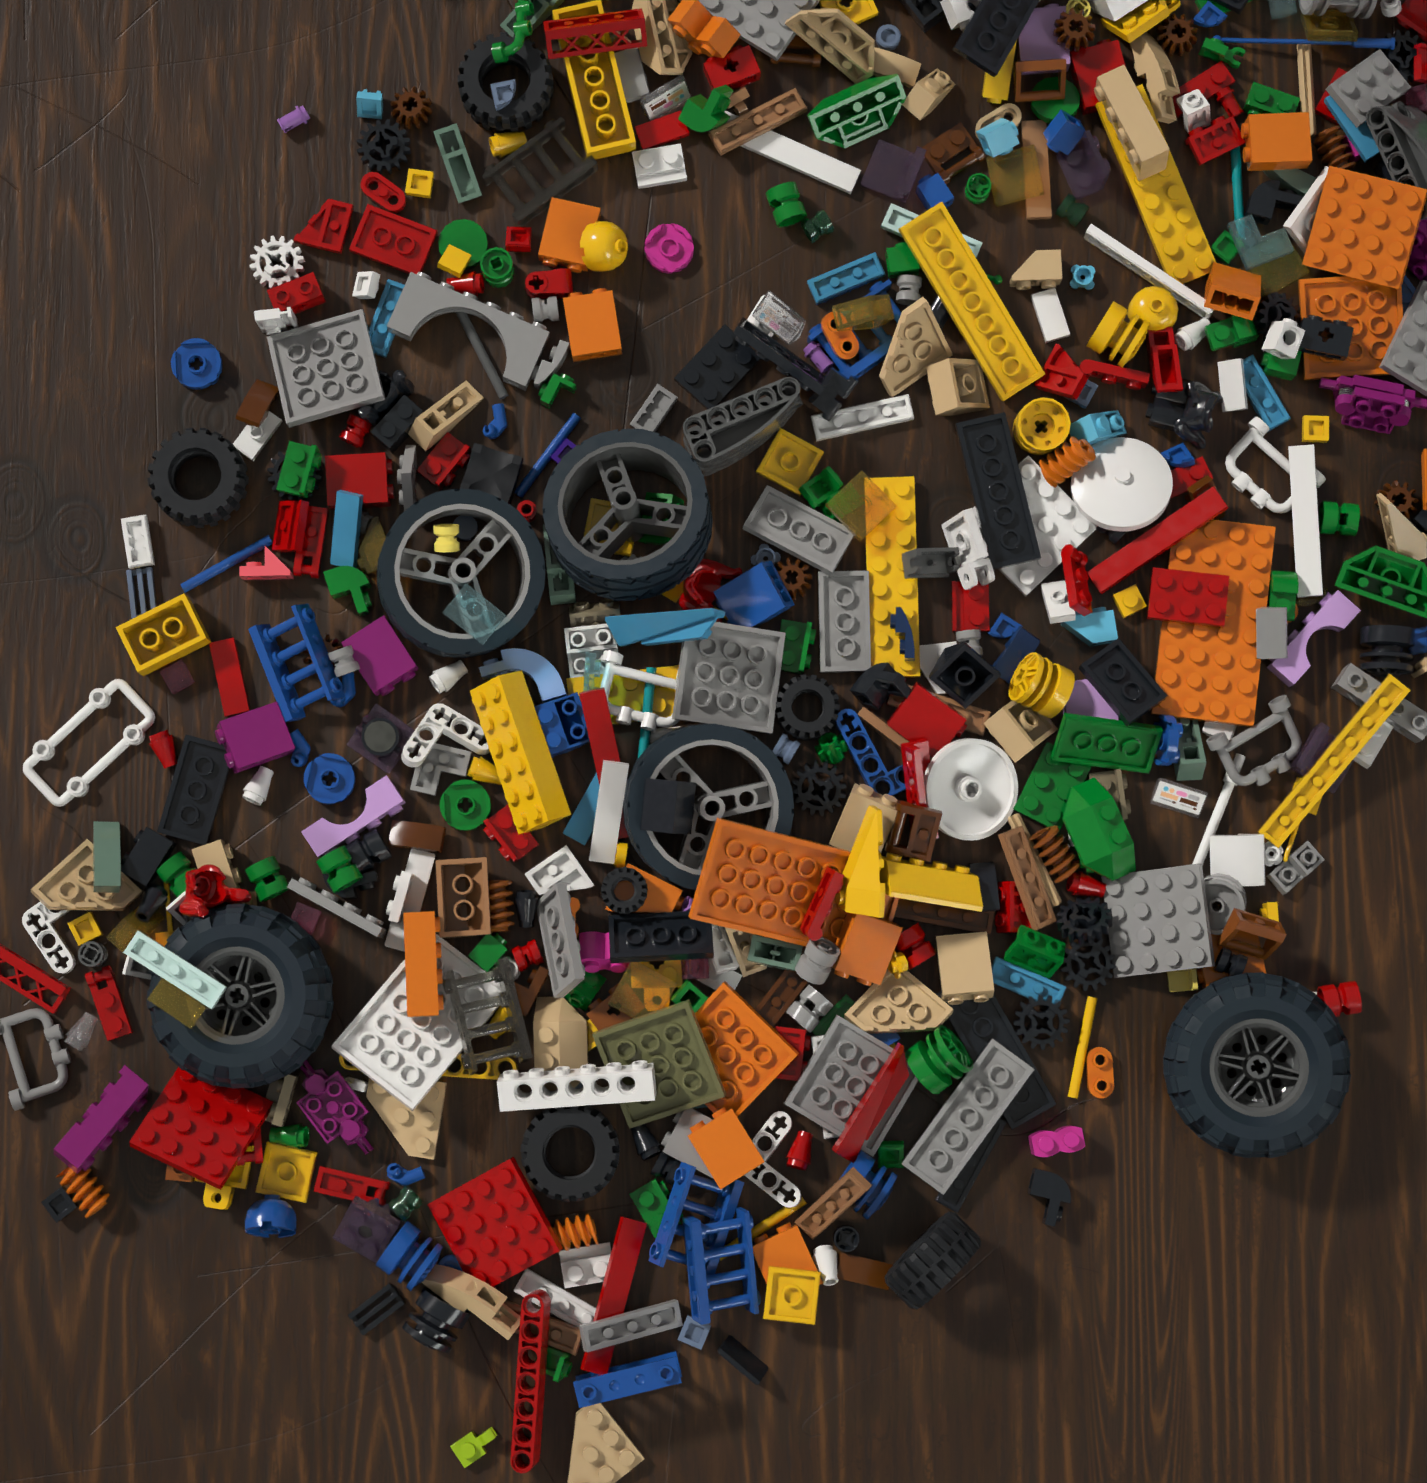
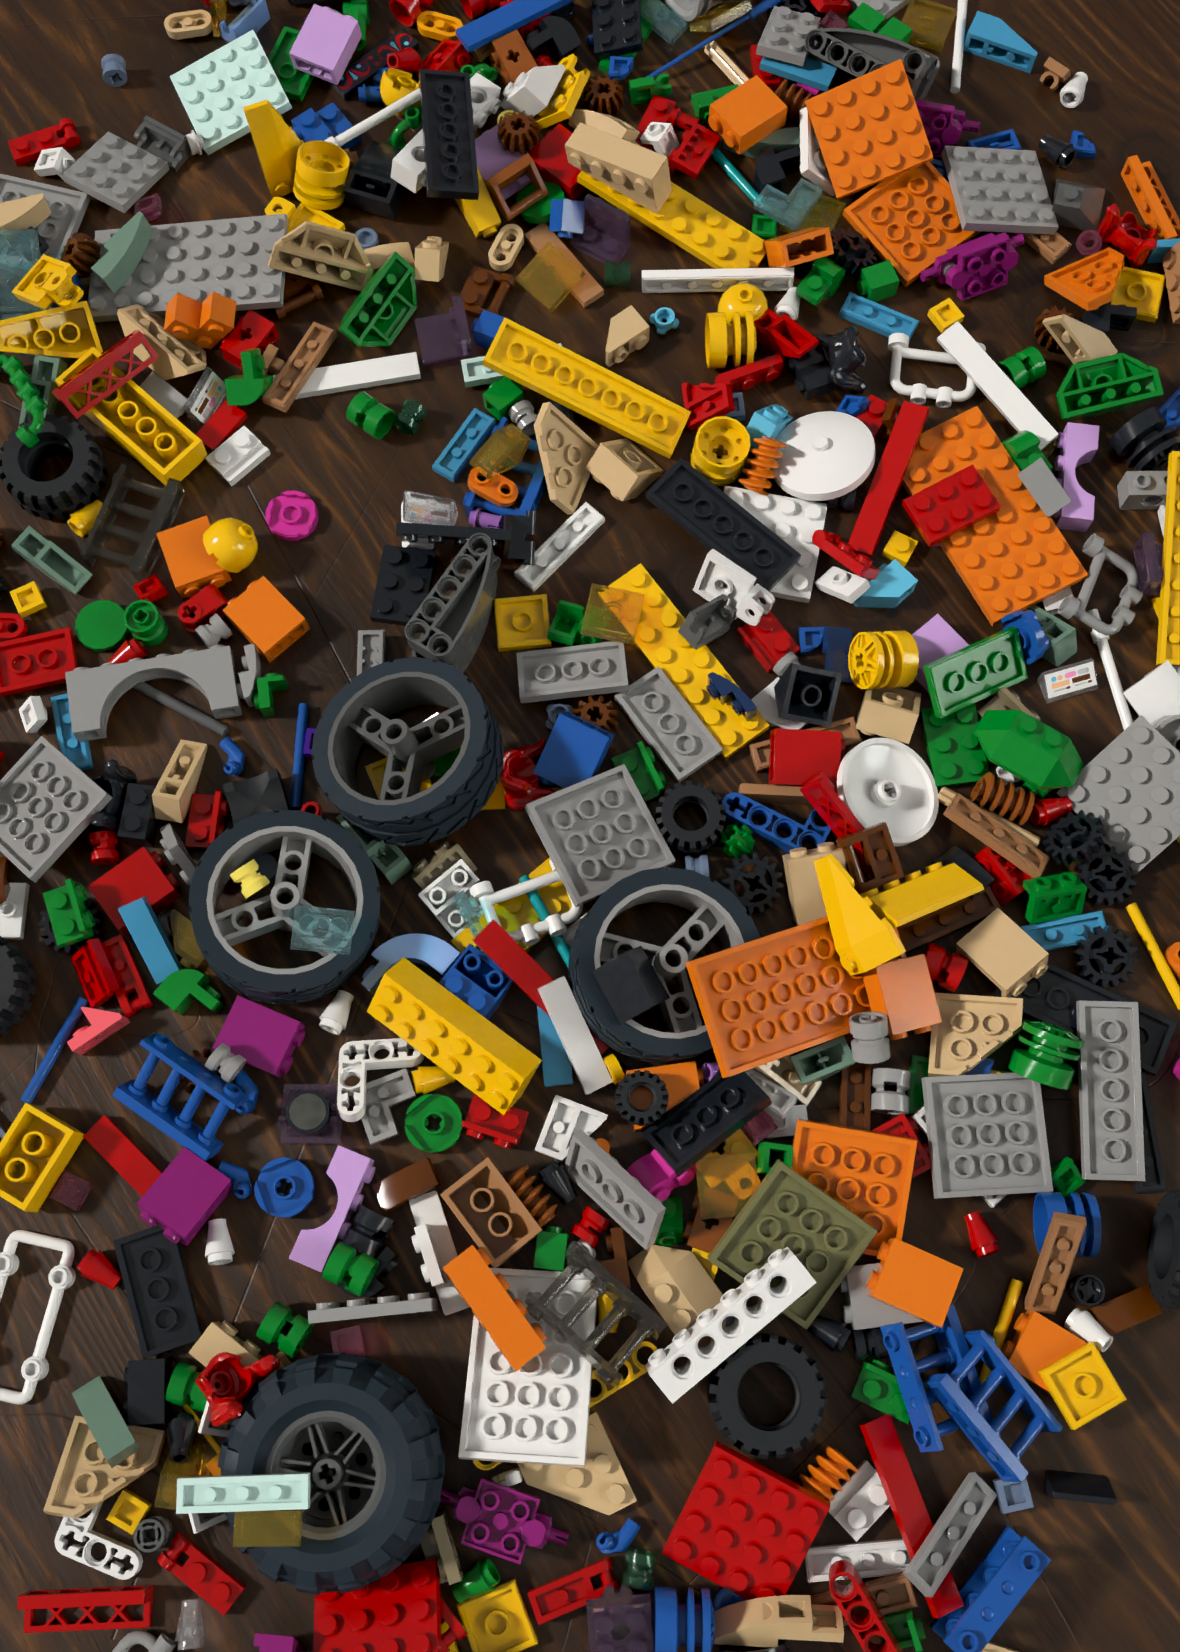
camera: 30 degrees left, 10 degrees down
(454, 261) = (102, 642): yellow tile -> none
(503, 93) = (52, 469): sand blue tile -> none
(663, 626) = (510, 826): dark azure wedge -> none
(766, 1155) = (995, 1276): white beam -> none
(821, 903) = (836, 981): red plate -> none
(873, 1105) = (1019, 1139): red wedge -> none
(877, 684) = (738, 755): black brick -> none
(898, 964) = (943, 992): yellow plate -> none
(977, 183) = (526, 305): green wheel -> none
(998, 137) = (515, 252): medium azure brick -> none
(1050, 315) = (659, 366): white tile -> none
(1122, 682) = (951, 610): black plate -> none
(1232, 385) = (847, 314): white slope -> none
(1274, 340) = (870, 254): white brick -> none
(1337, 344) = (901, 236): black brick -> none

